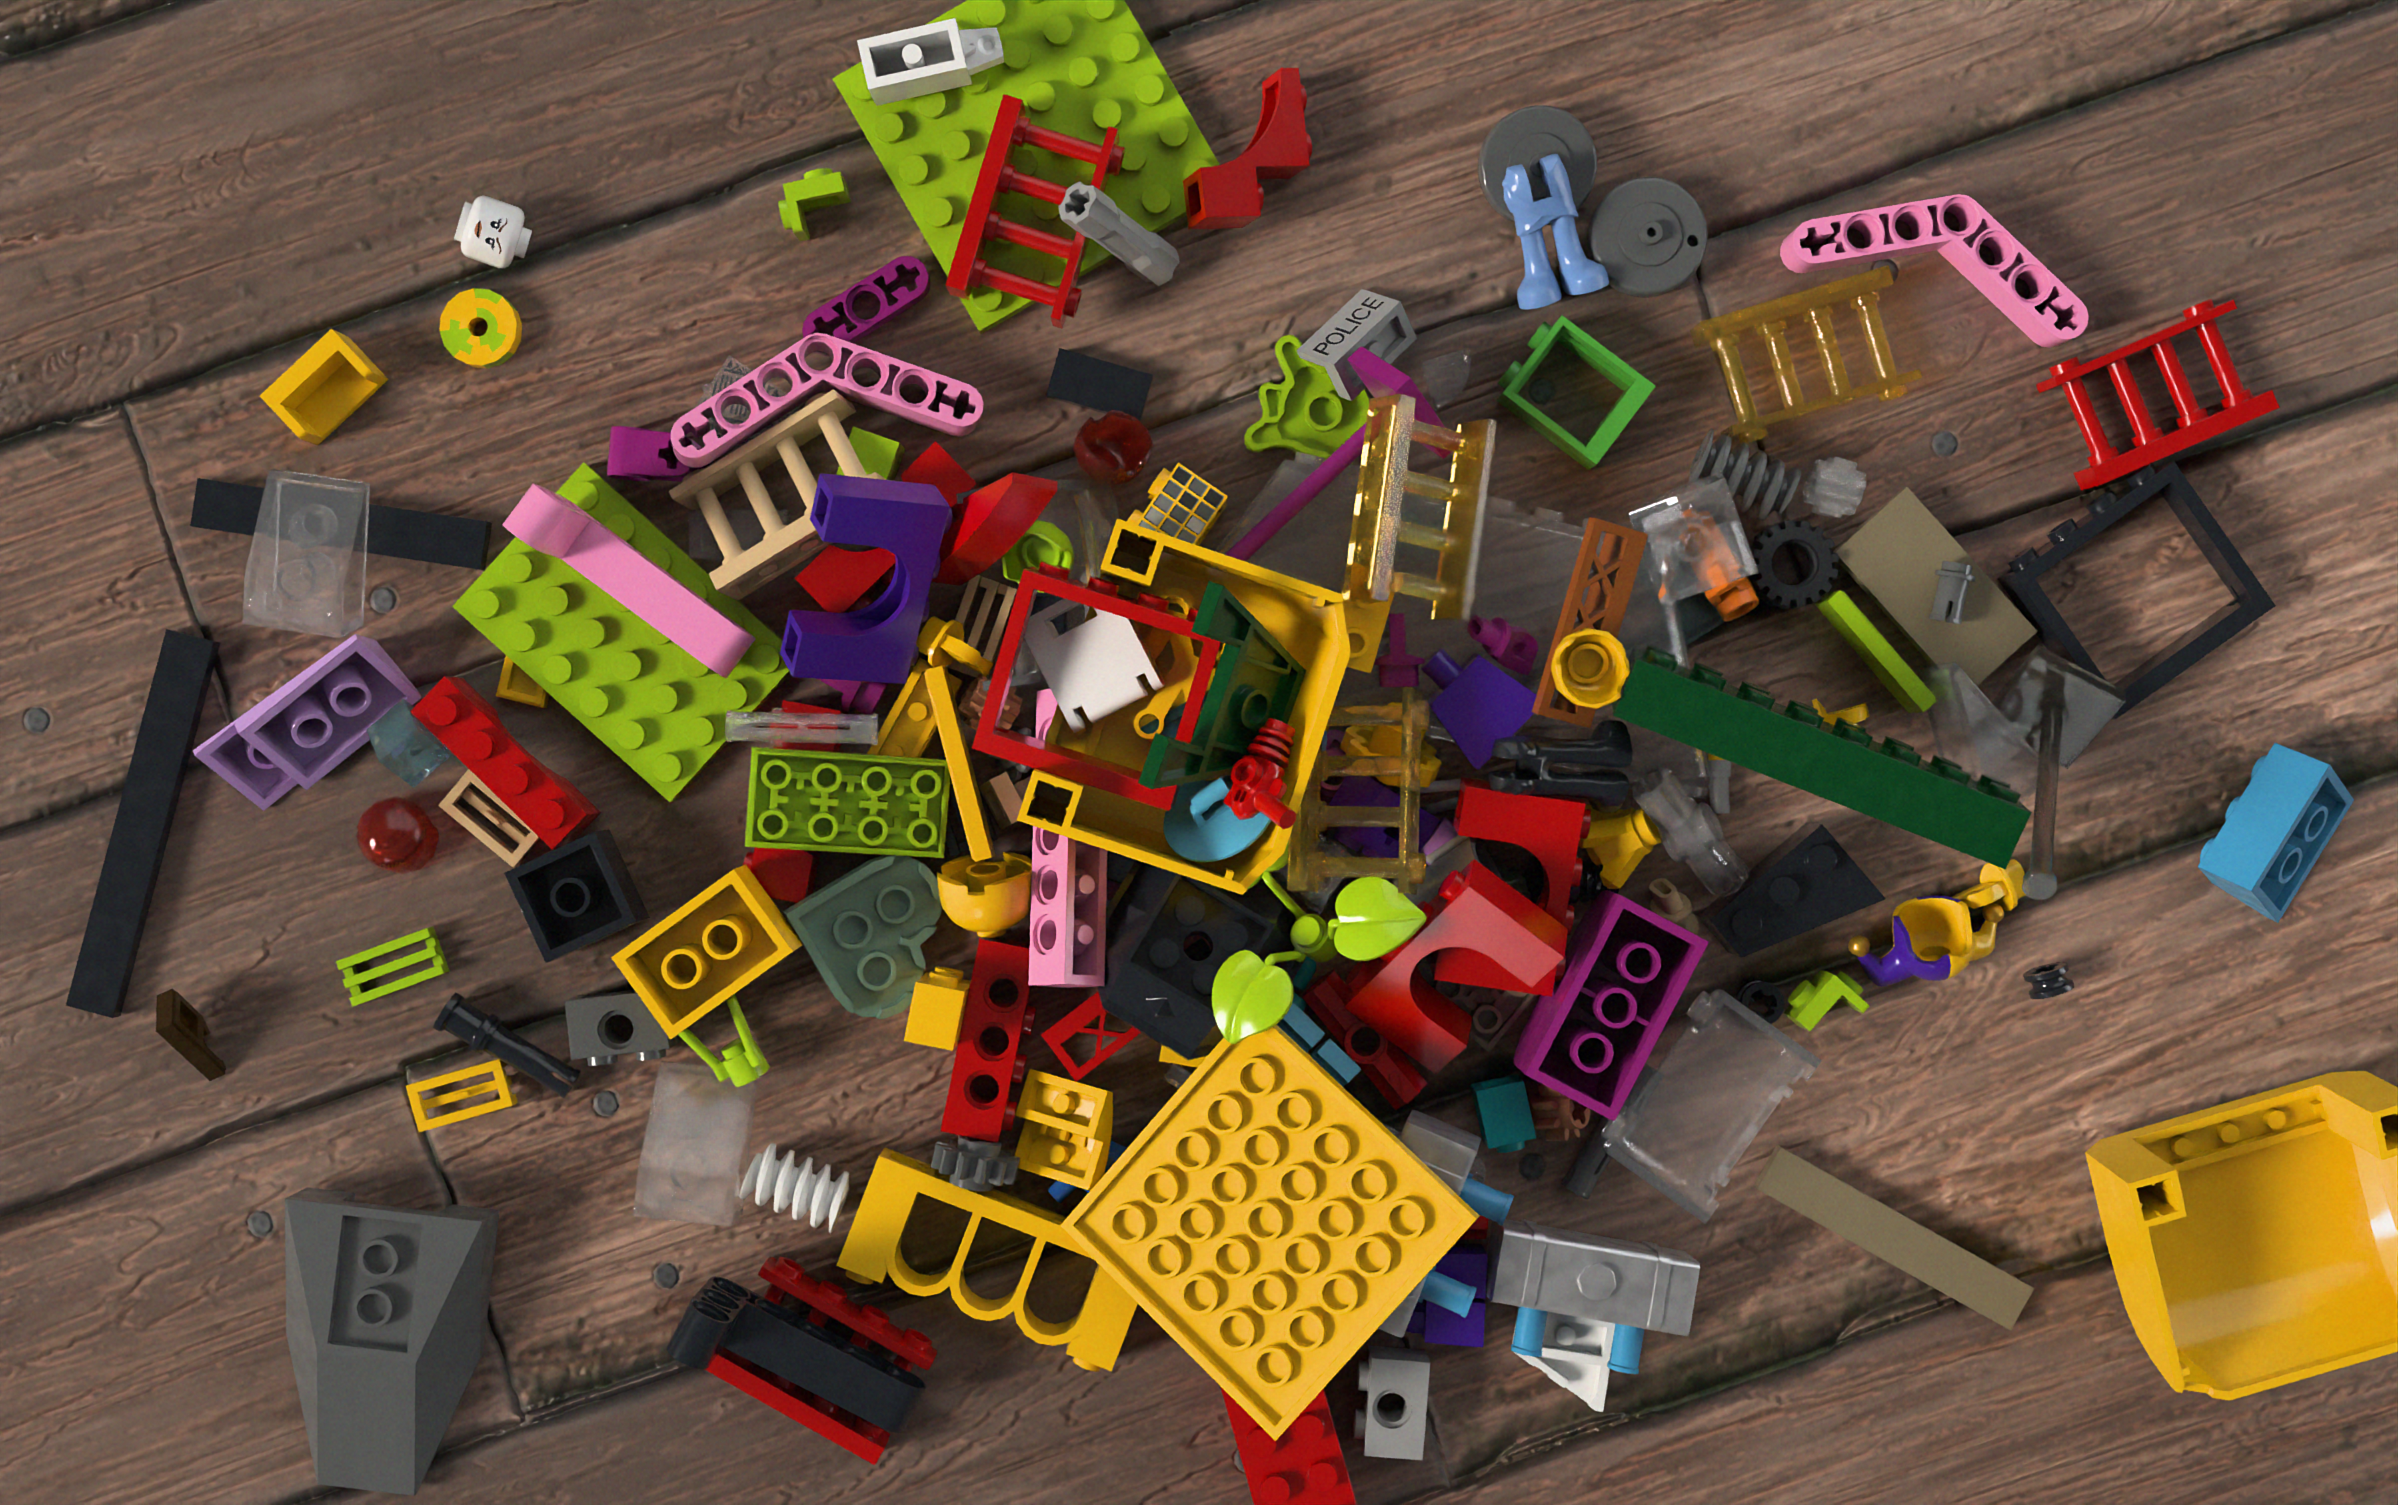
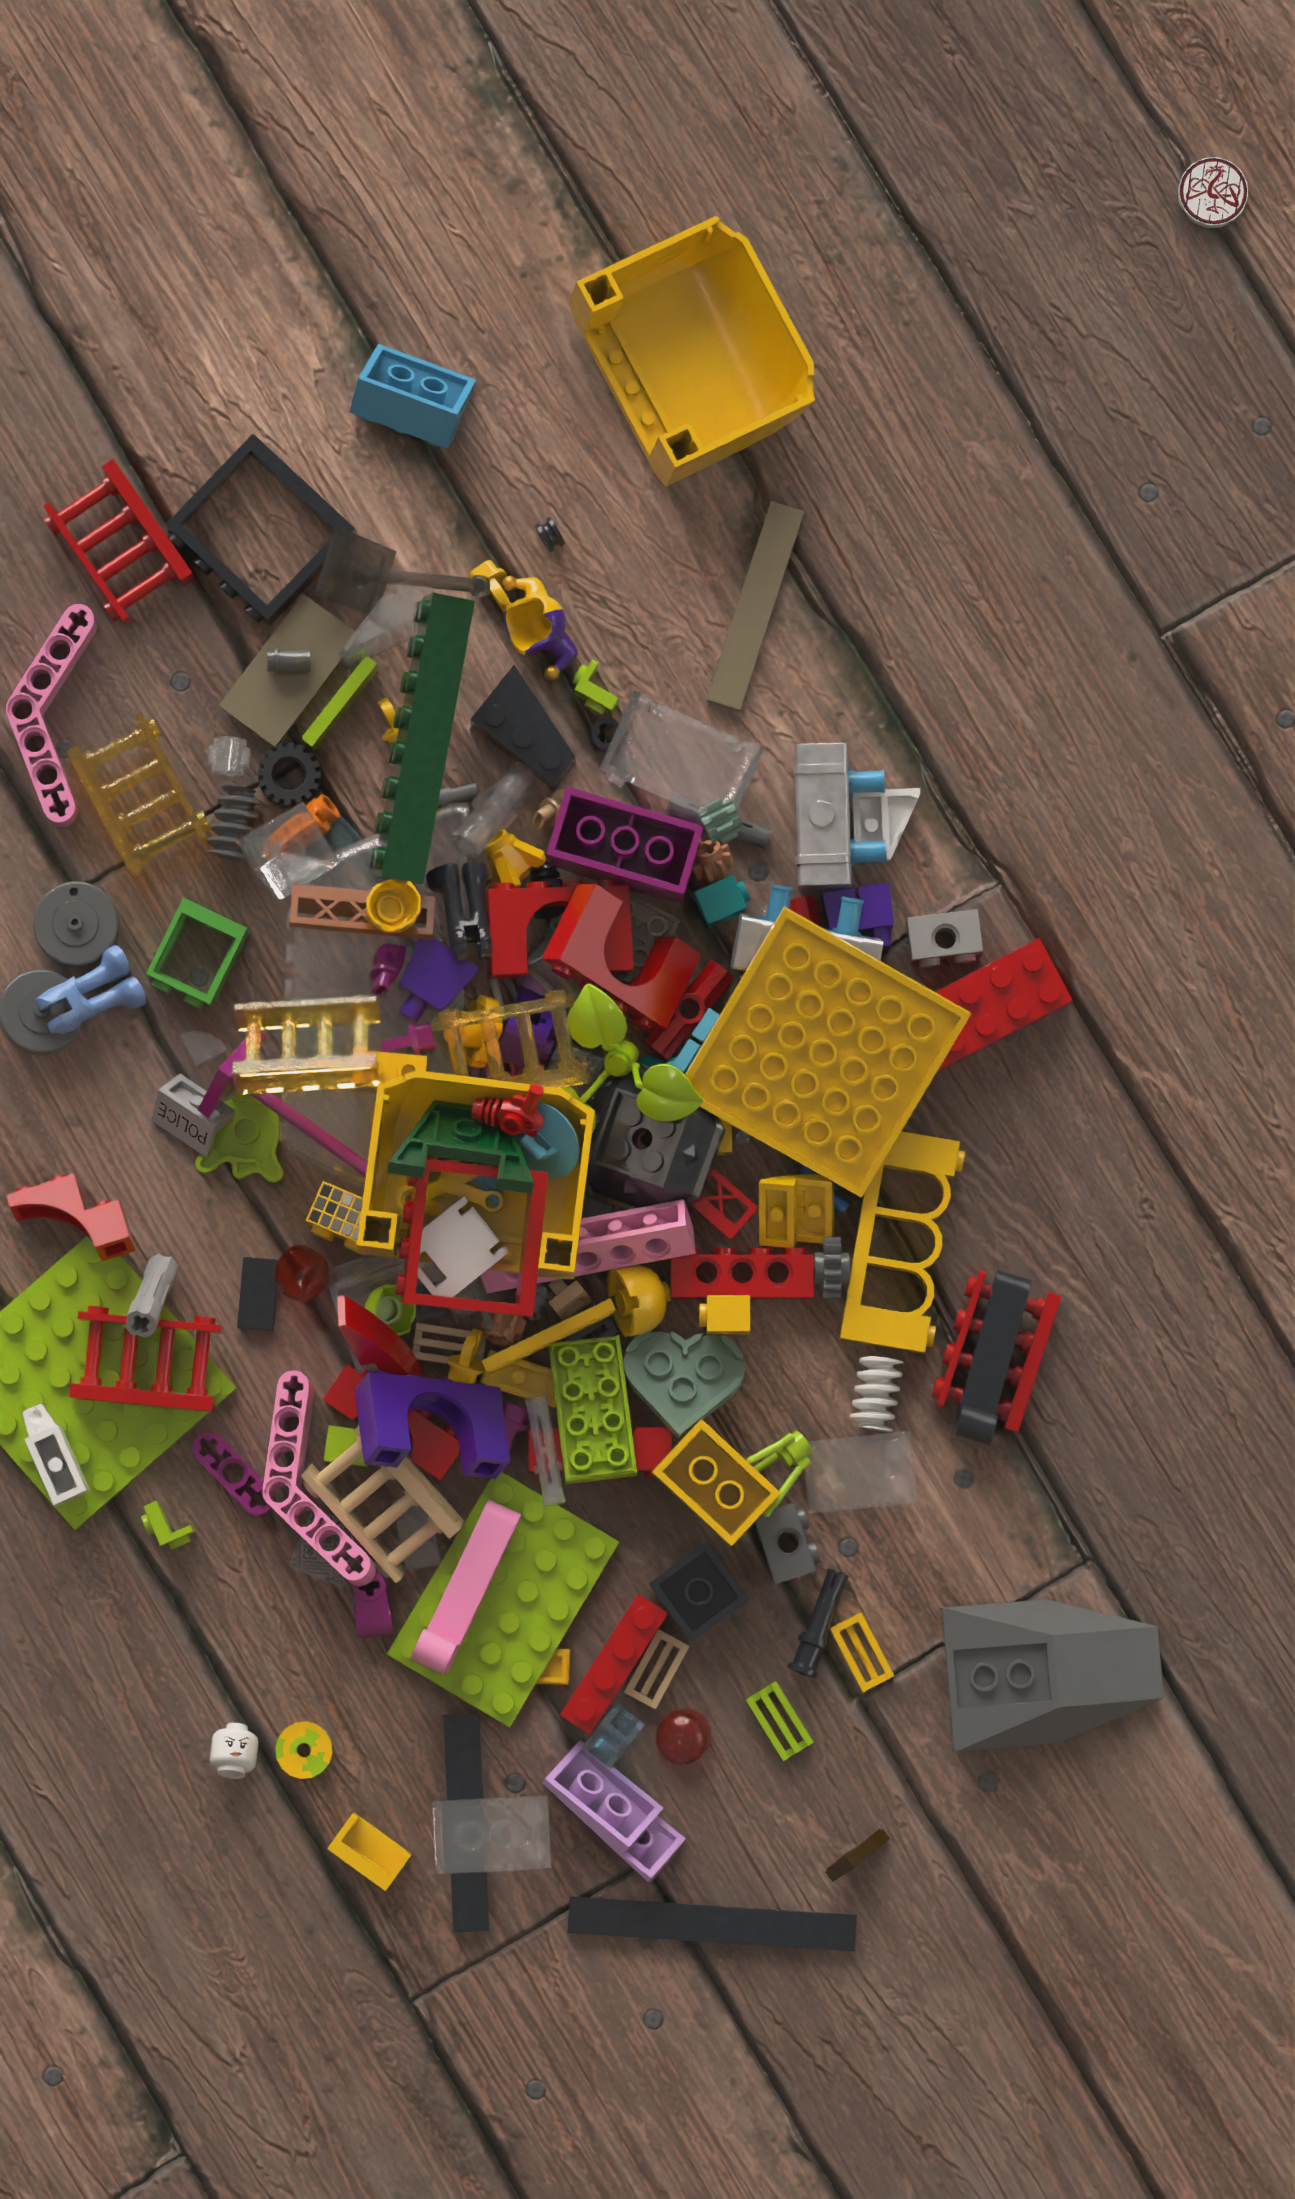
camera: 100 degrees left, 5 degrees down
(1615, 1146) = (721, 821): none -> sand green gear

